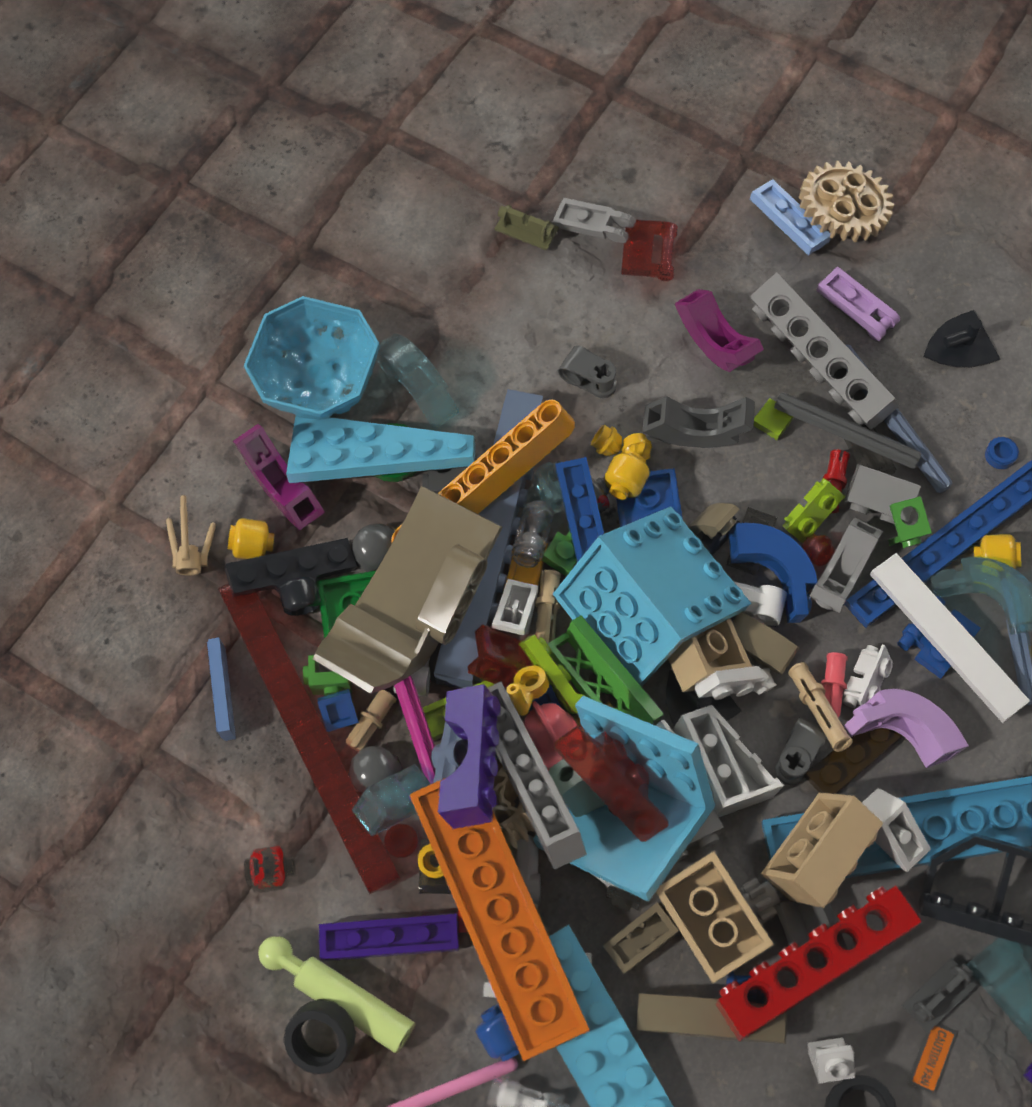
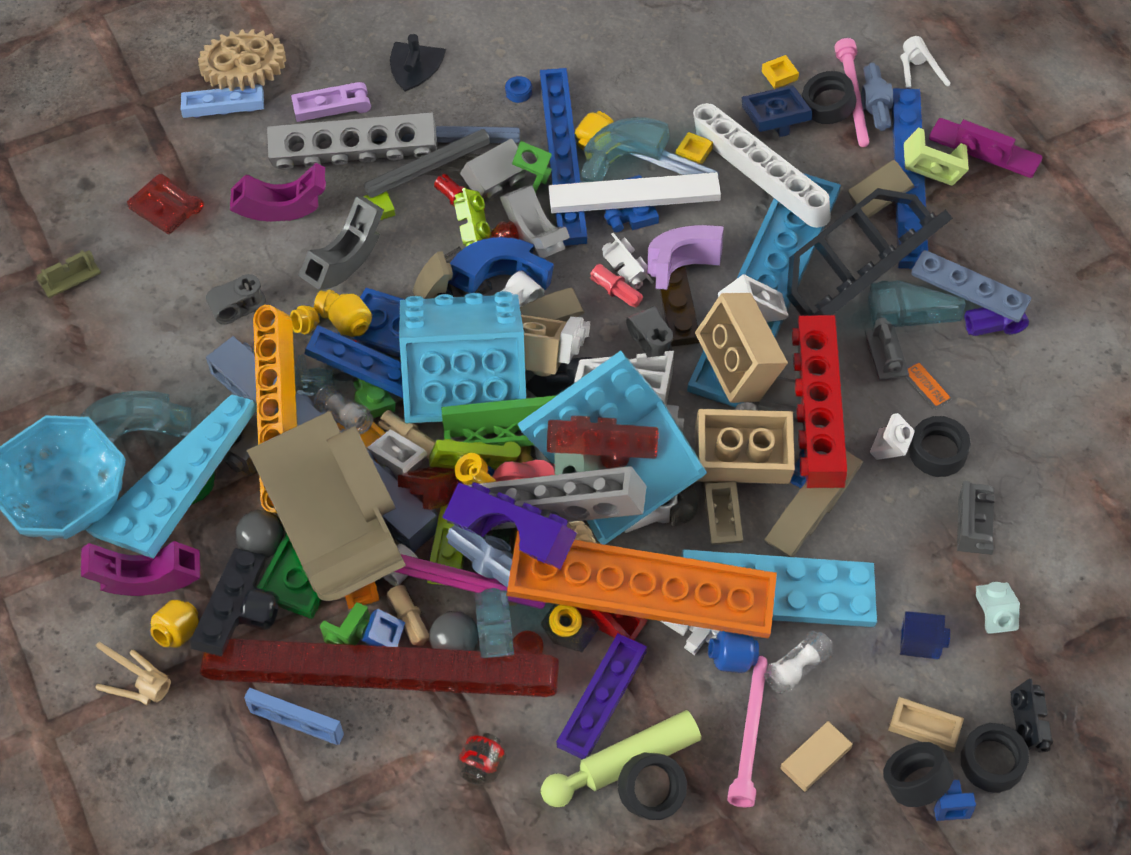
camera: 60 degrees left, 10 degrees down
(592, 220) = (108, 222): light grey hinge -> none
(814, 696) = (628, 299): tan pin -> none

